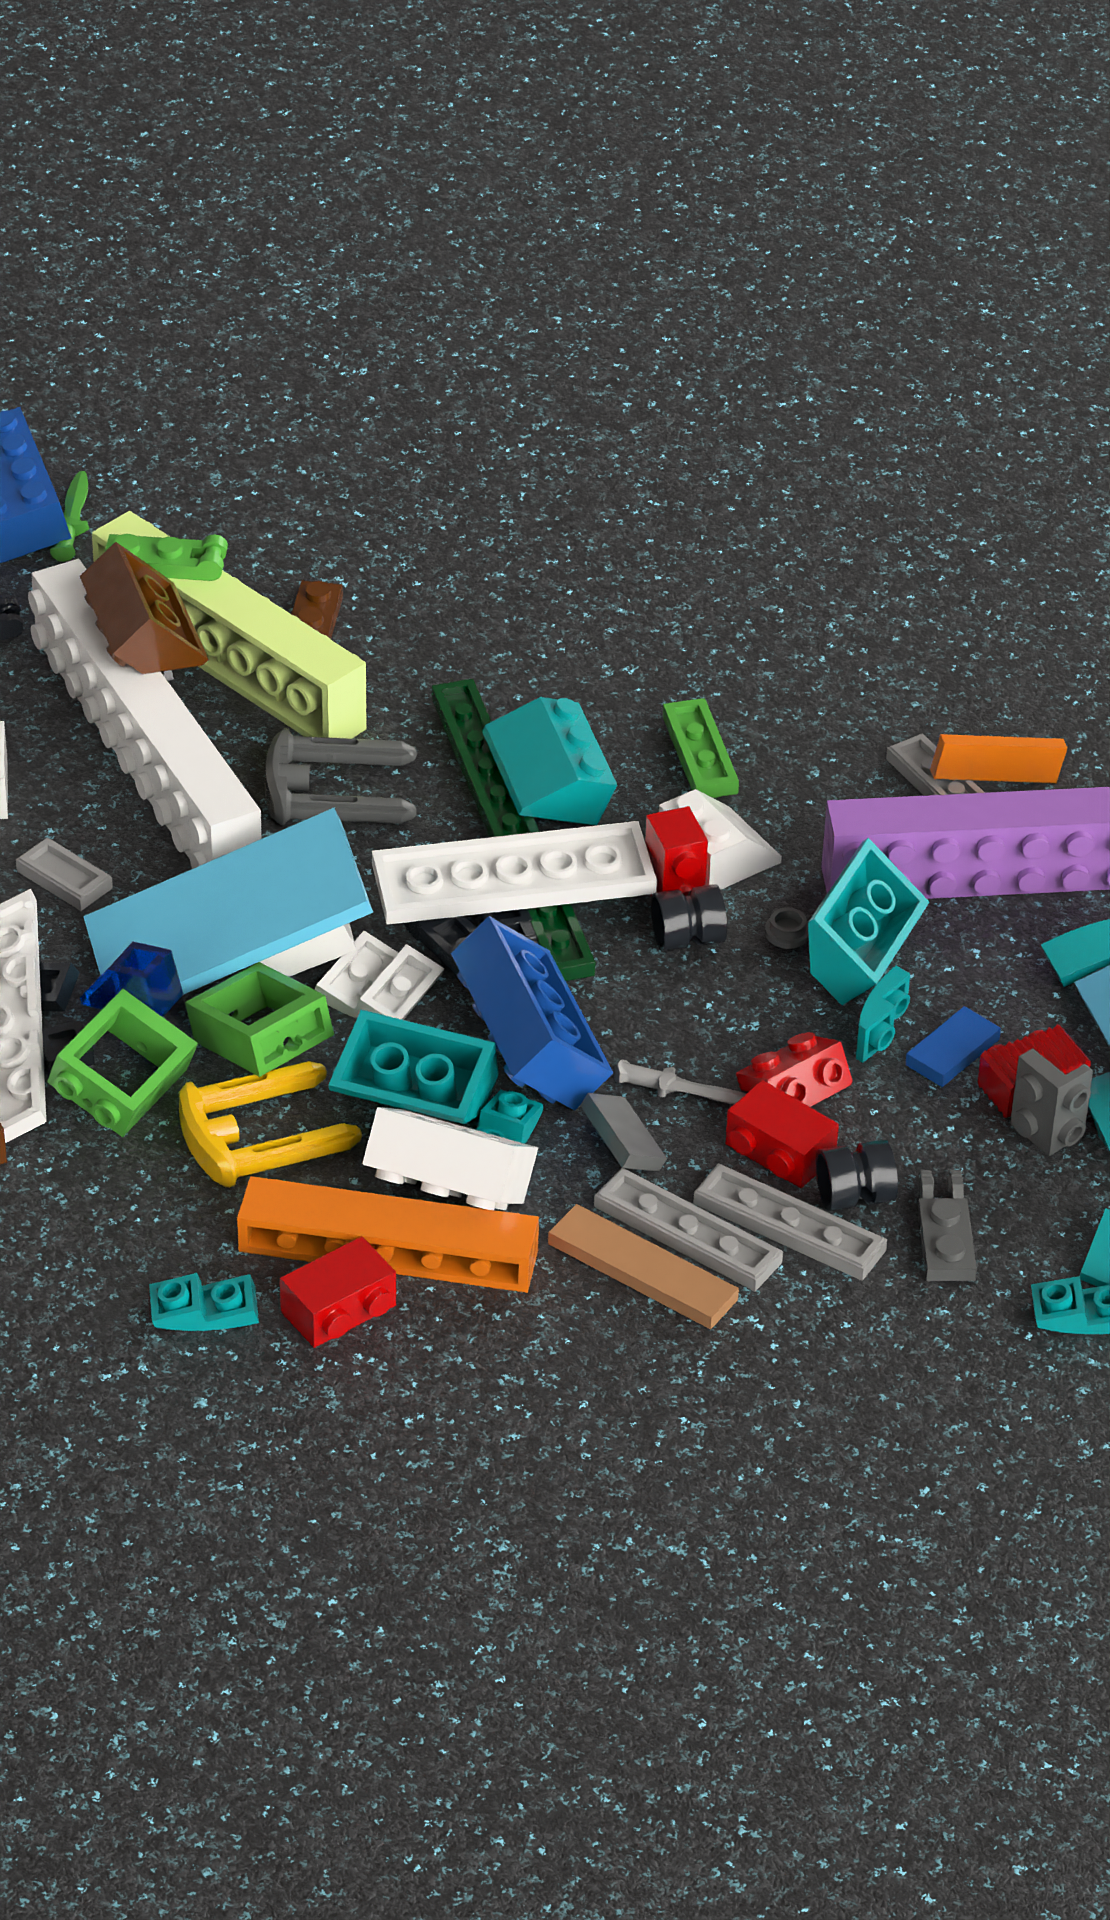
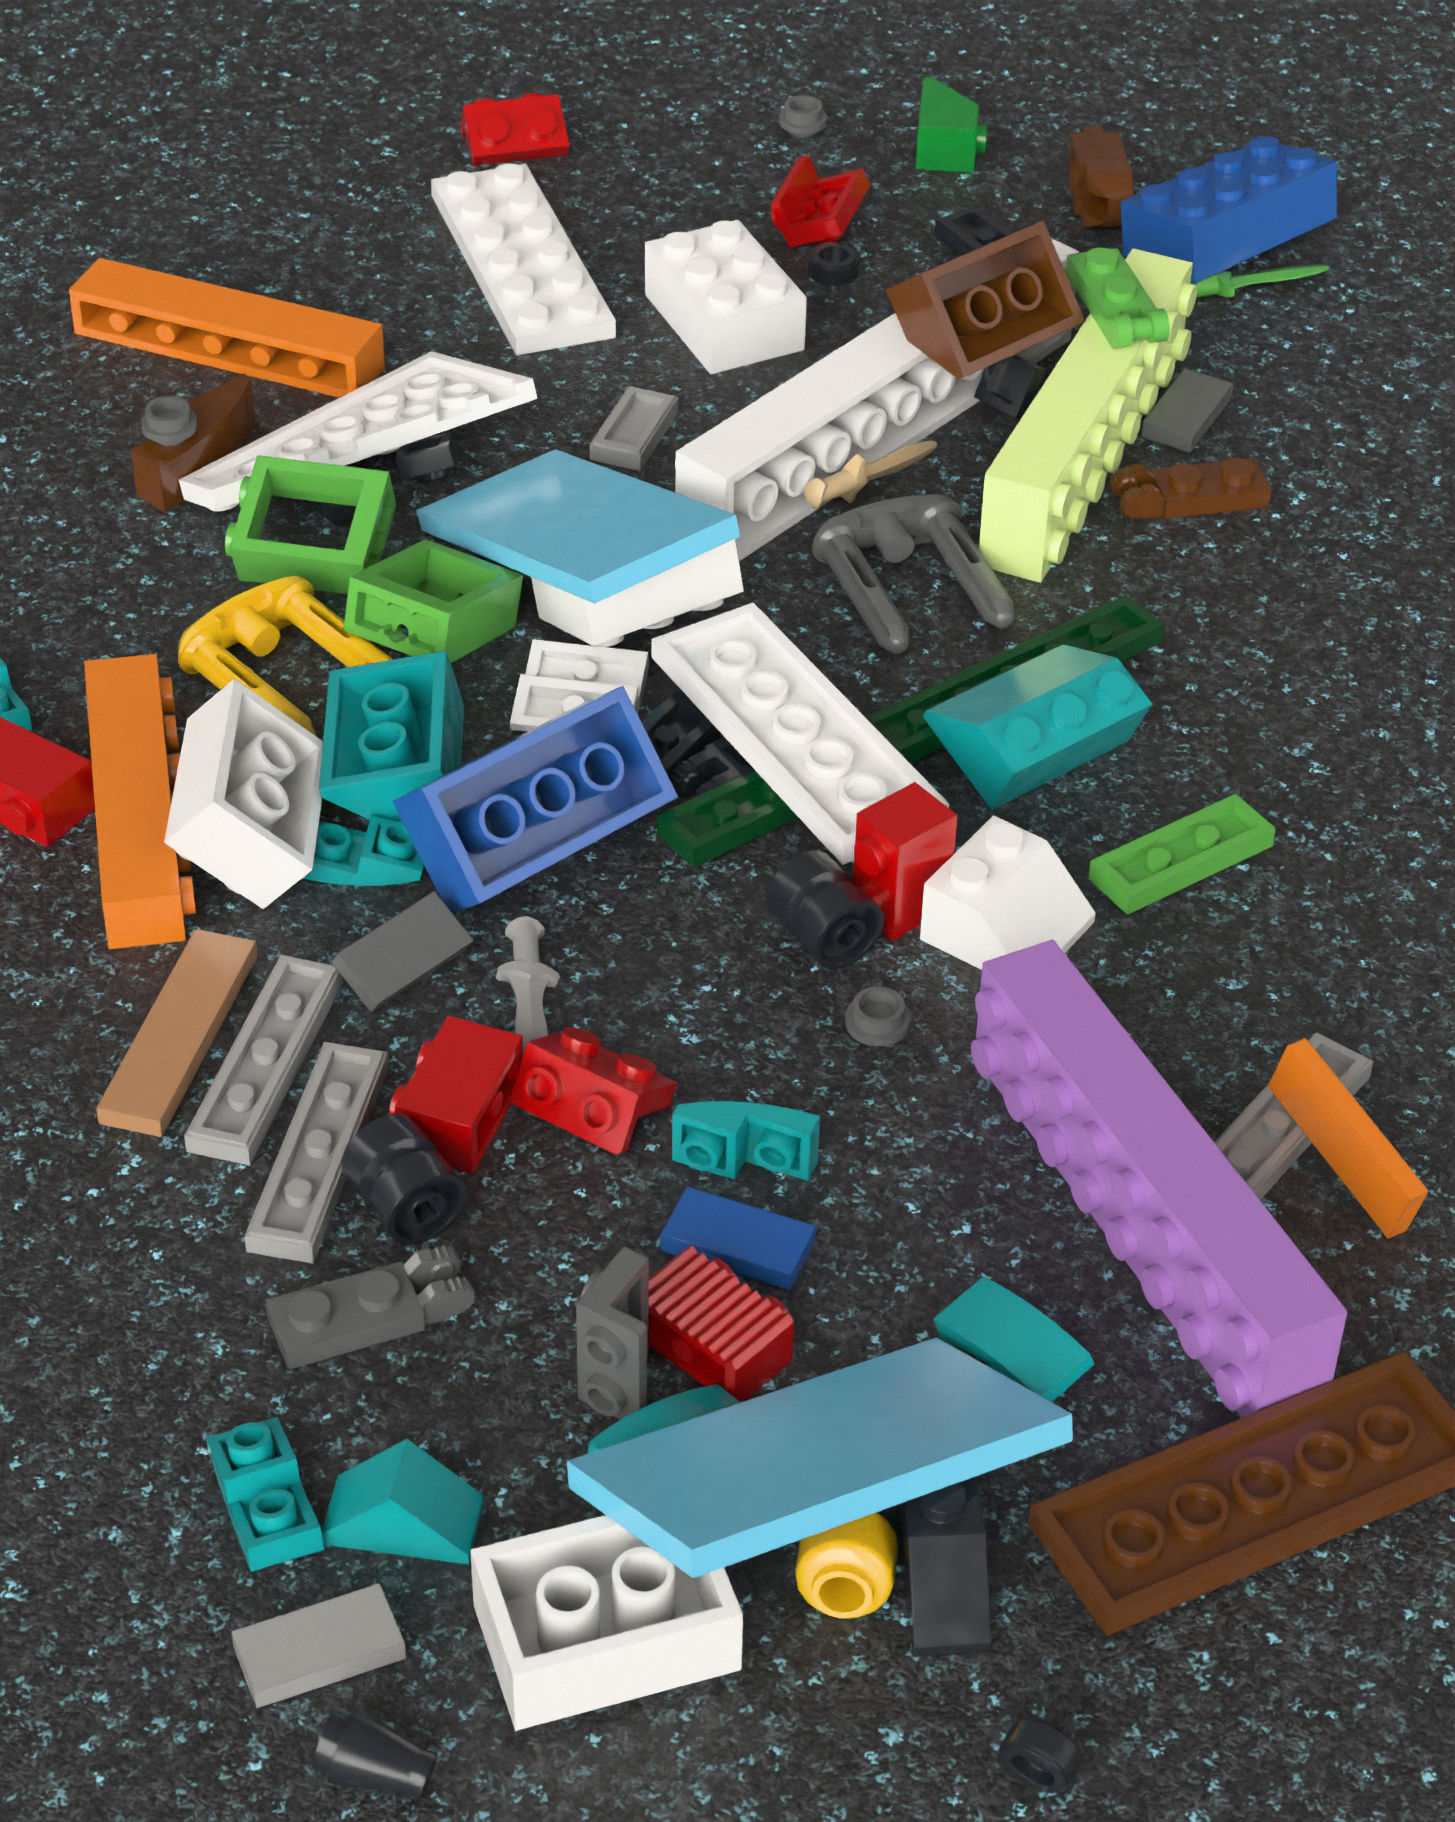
camera: 70 degrees right, 0 degrees up
(143, 972) = (417, 487): clear blue slope -> none
(862, 923) = (880, 1050): teal slope -> none

